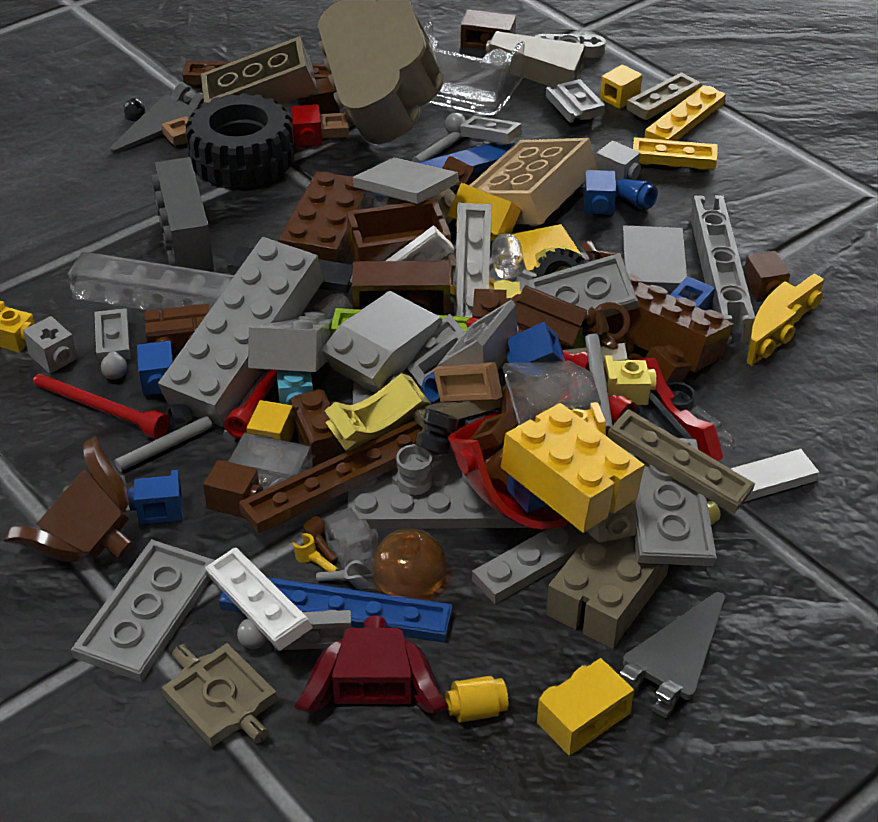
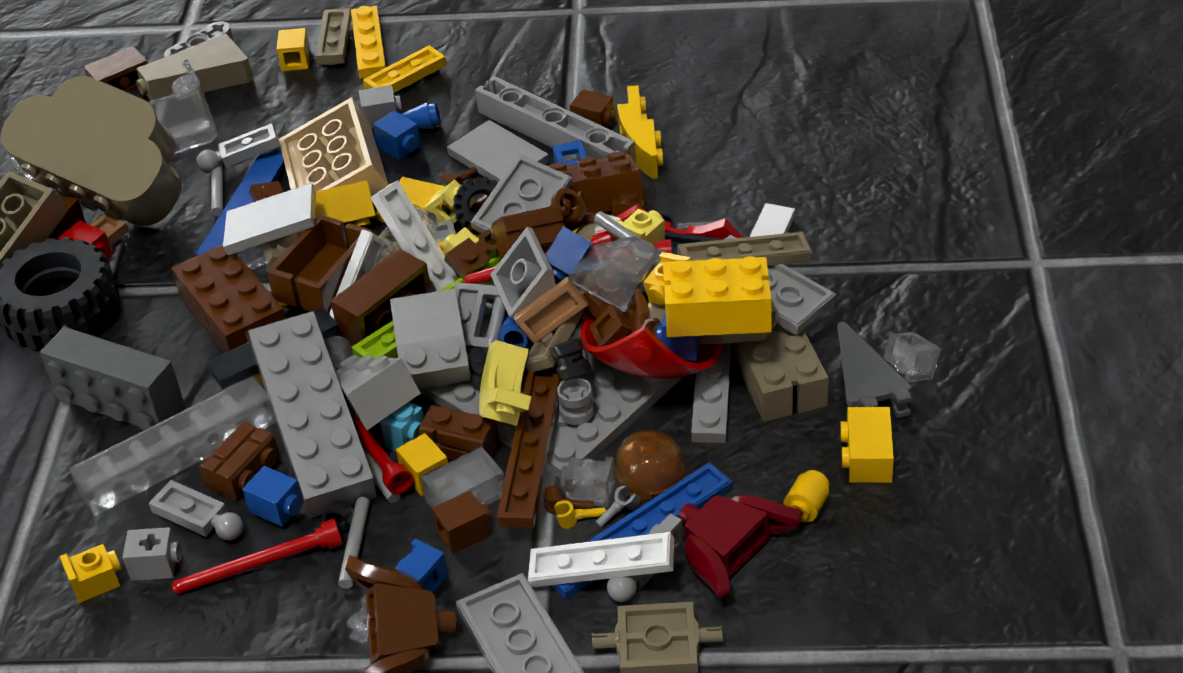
camera: 45 degrees left, 0 degrees up
(575, 101) = (272, 83): light grey plate -> none
(728, 670) = (912, 356): none -> clear brick

